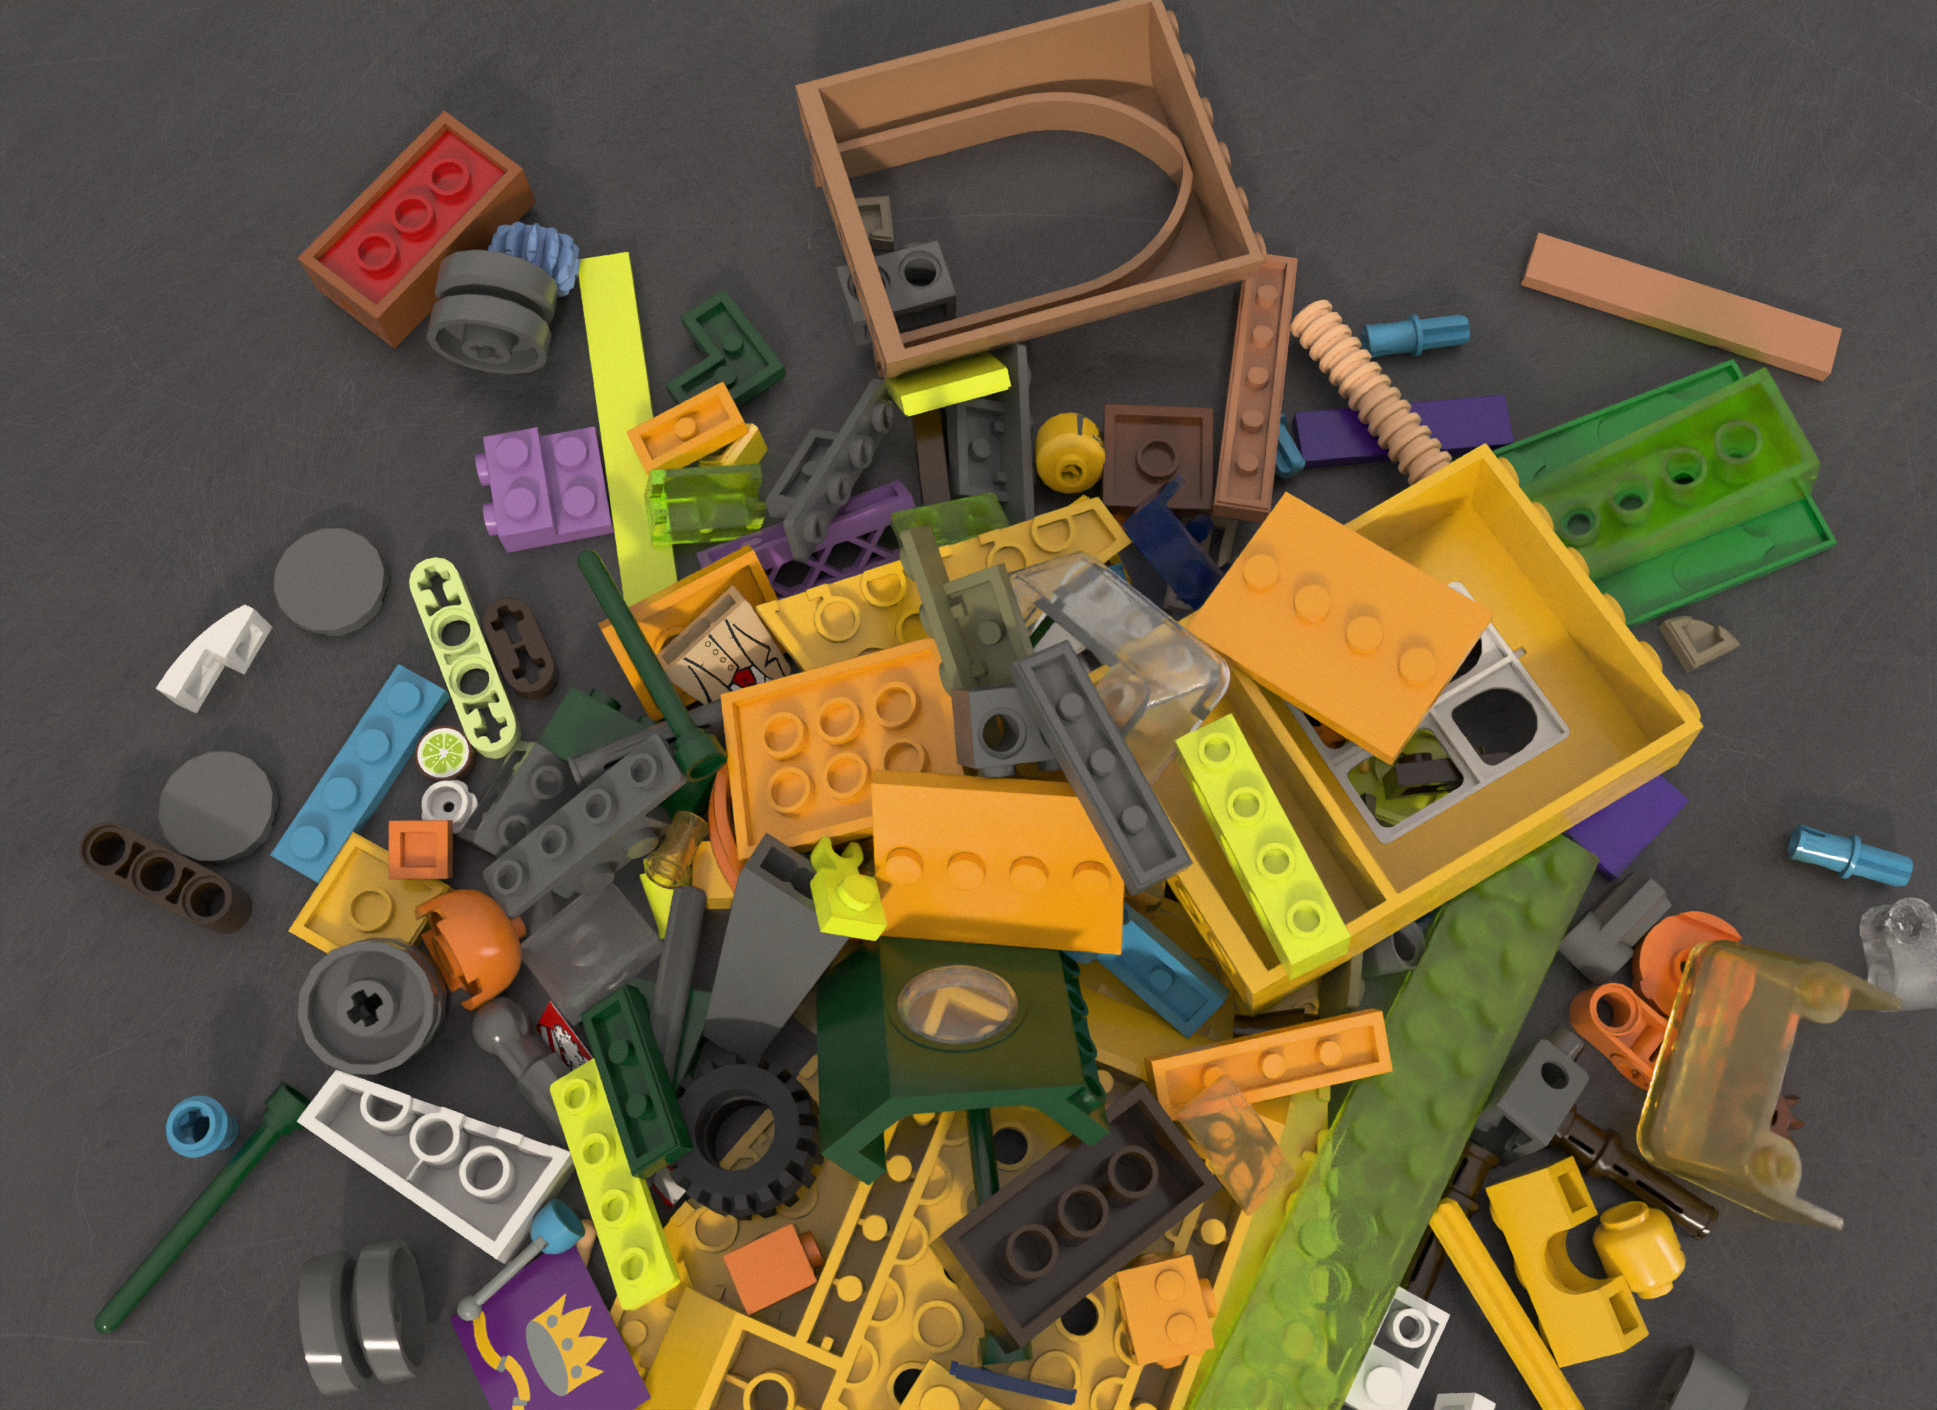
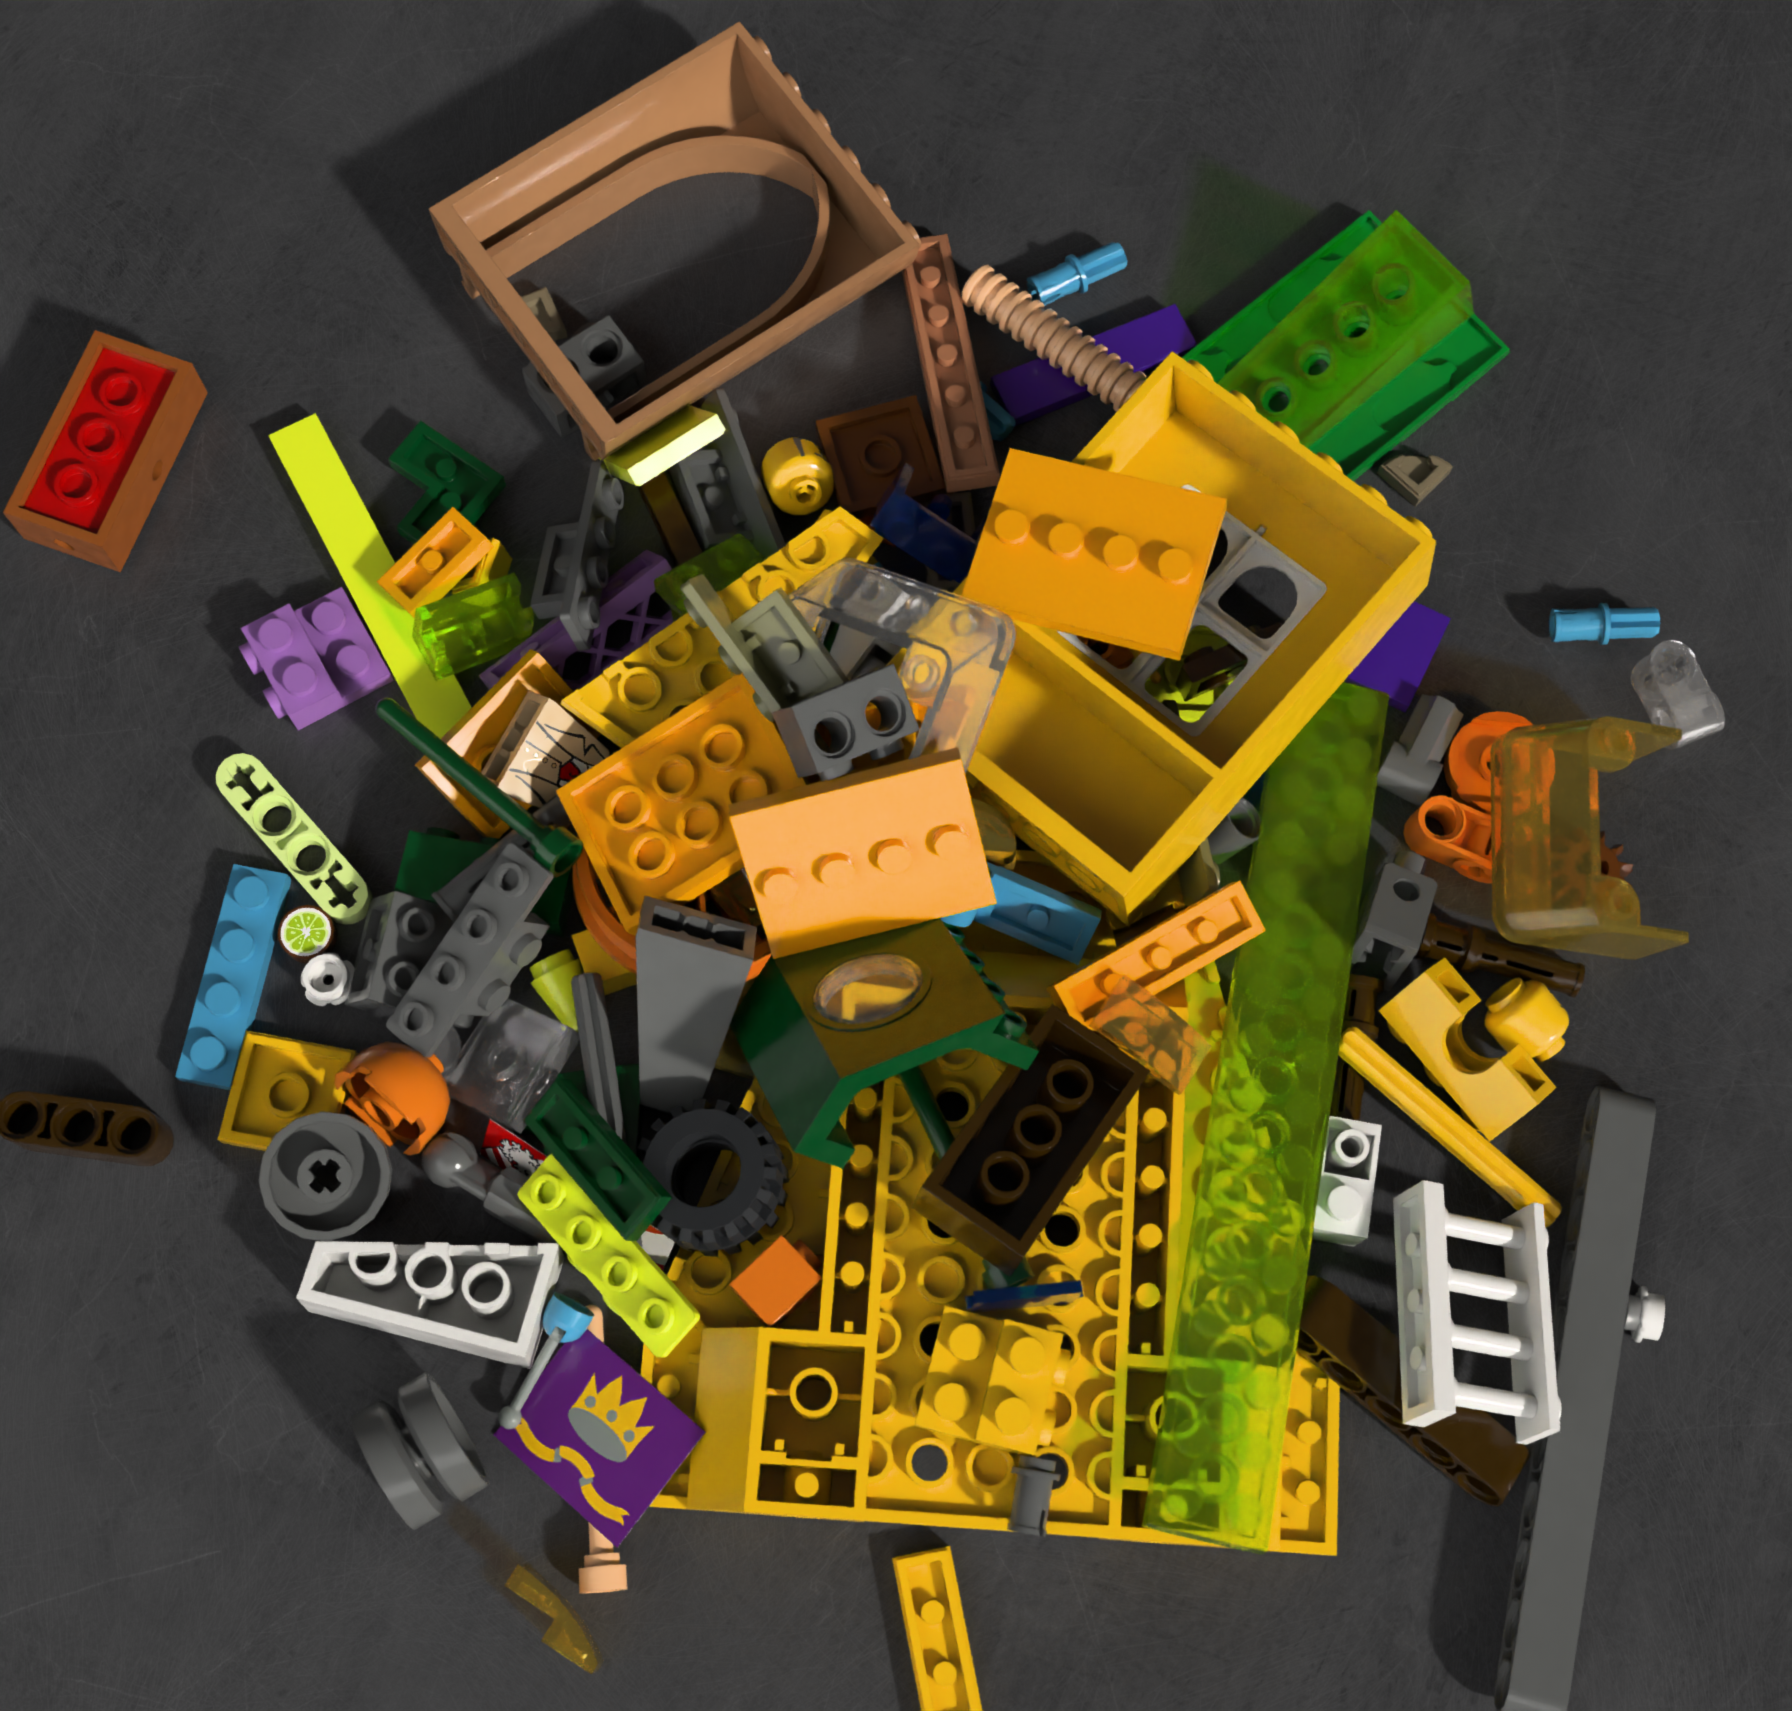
camera: 20 degrees left, 0 degrees up
(200, 1127) = (192, 1333): dark azure cone -> none
(218, 808) = (108, 1049): dark grey tile -> none
(228, 643) = (61, 897): white slope -> none
(280, 1119) = (274, 1306): dark green piece -> none
(331, 581) = (139, 809): dark grey tile -> none
(420, 849) = (318, 1024): orange tile -> none
(492, 312) = (209, 508): dark grey wheel -> none
(509, 653) = (352, 806): dark brown beam -> none
(542, 247) = (229, 448): medium blue gear -> none
(671, 862) = (560, 956): clear yellow pin -> none
(842, 897) = (734, 928): neon yellow plate -> none
(1100, 767) = (928, 735): dark grey tile -> none
(1165, 1309) = (1134, 1194): light orange head -> none
(1262, 847) = (1090, 765): neon yellow brick -> none
(1681, 307) = (1307, 176): nougat tile -> none

